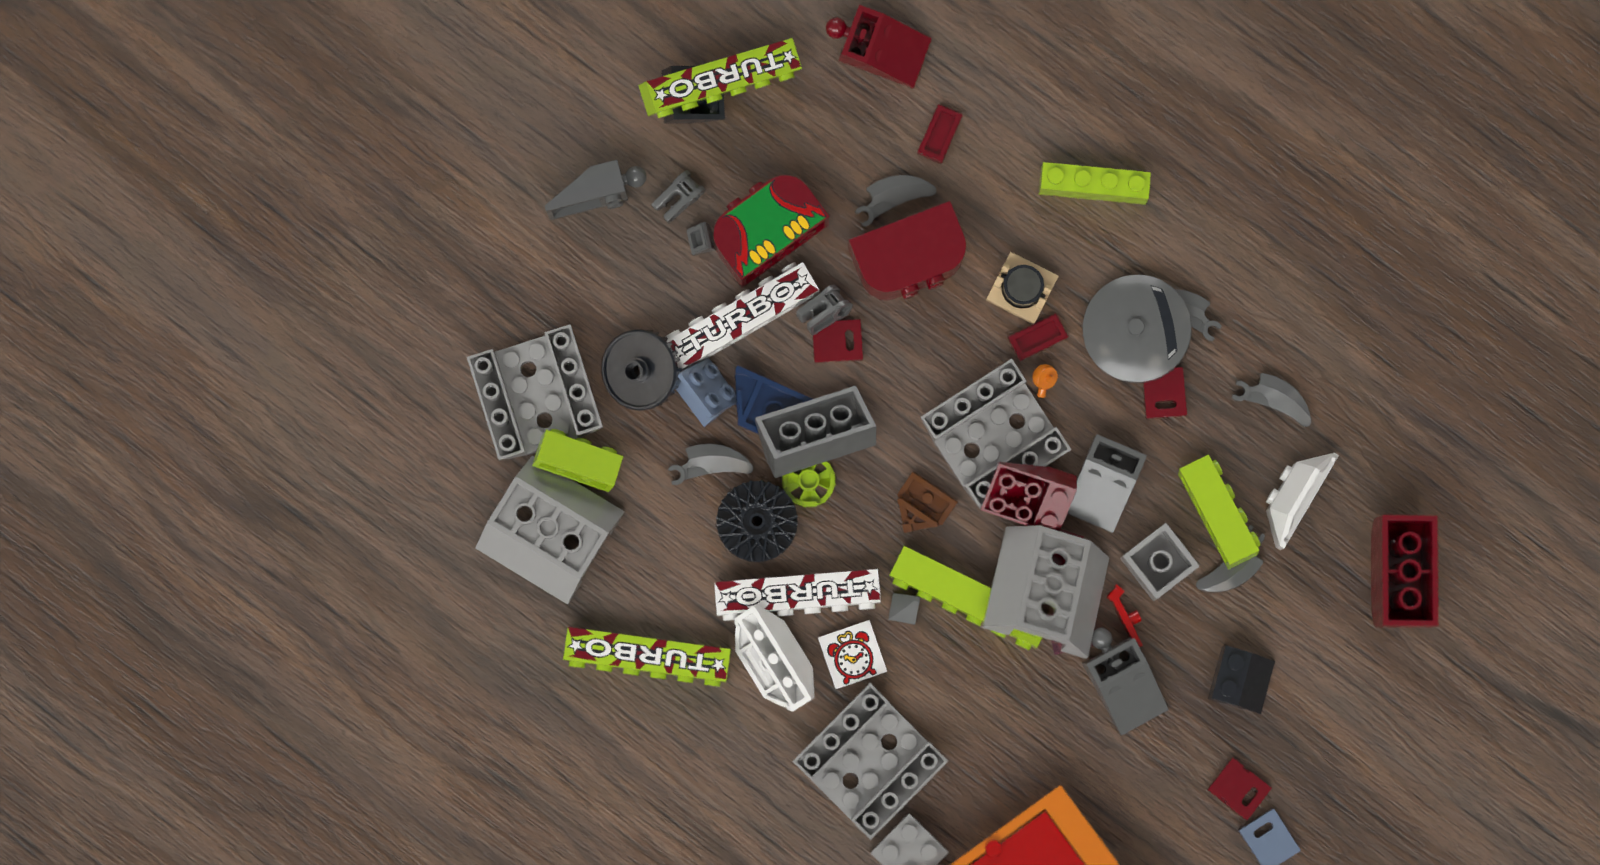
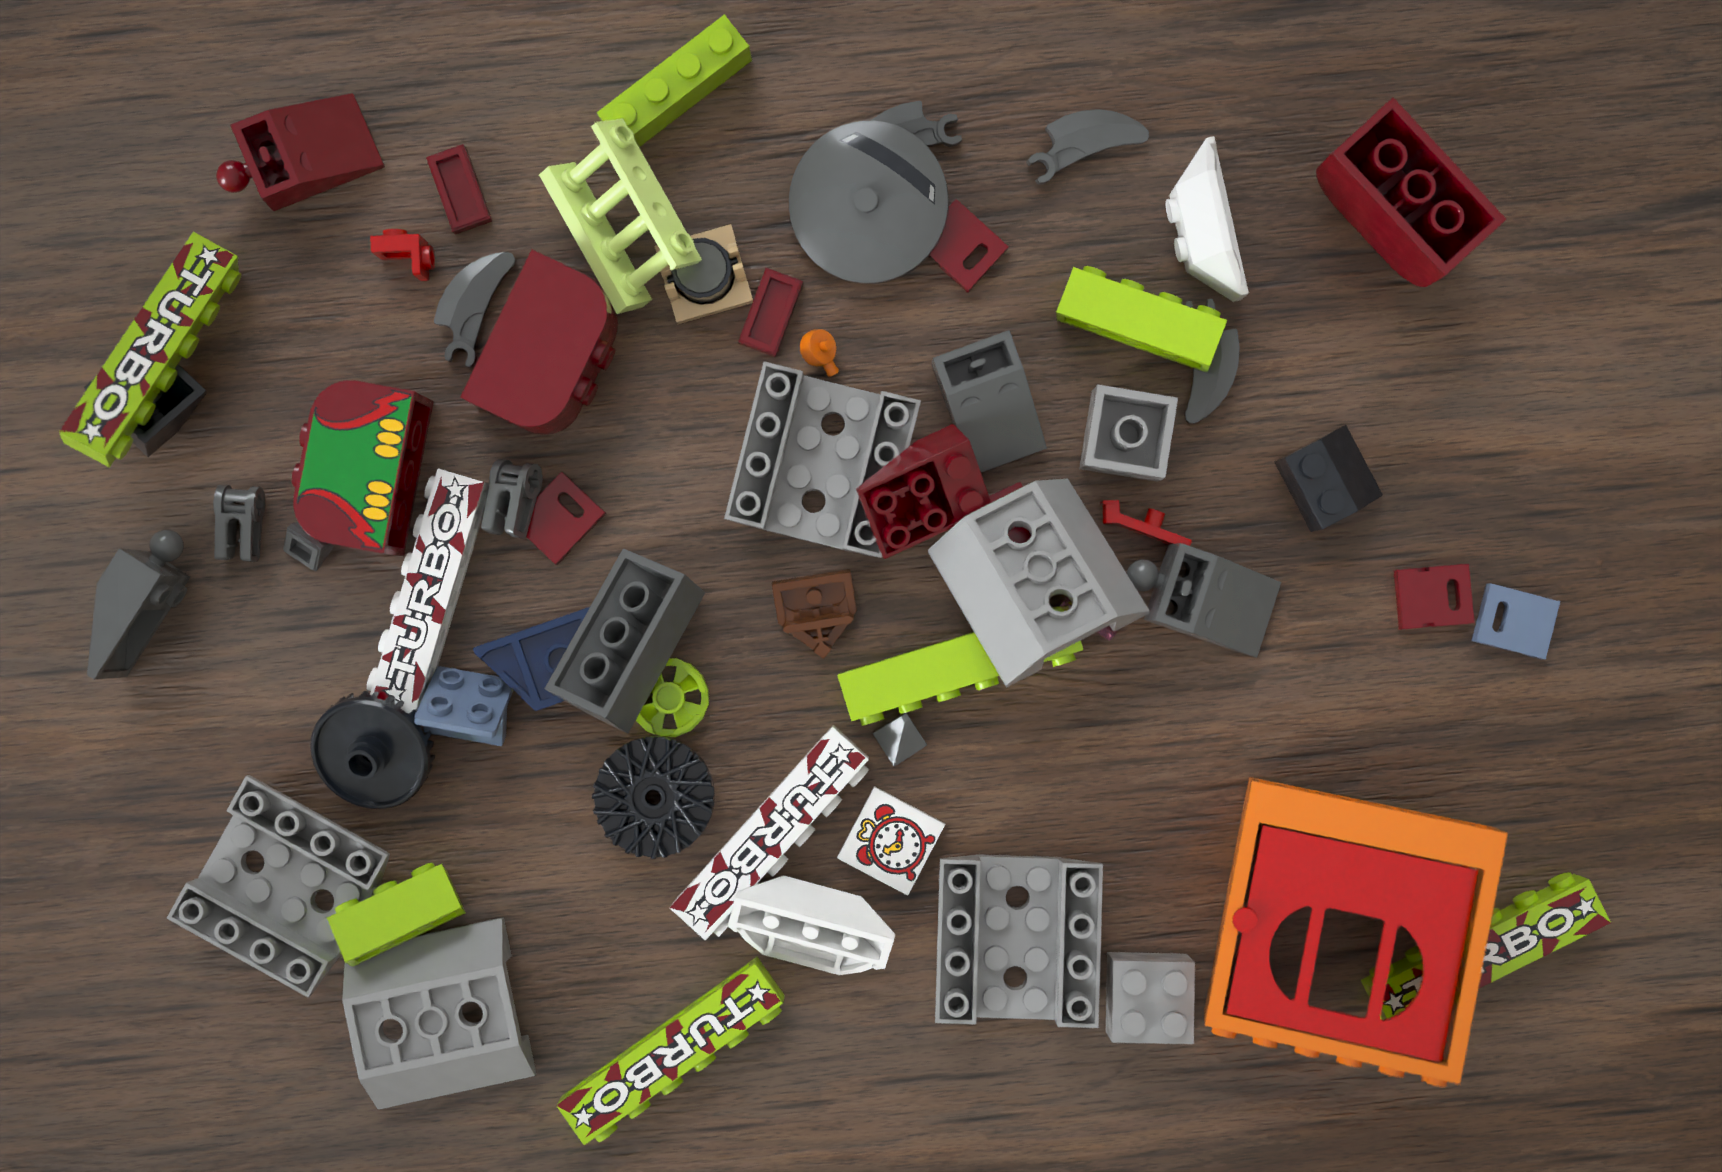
camera: 40 degrees left, 5 degrees up
(711, 459) = (542, 775): dark grey piece -> none
(885, 134) = (401, 245): none -> red bracket
(986, 219) = (594, 233): none -> yellowish green fence

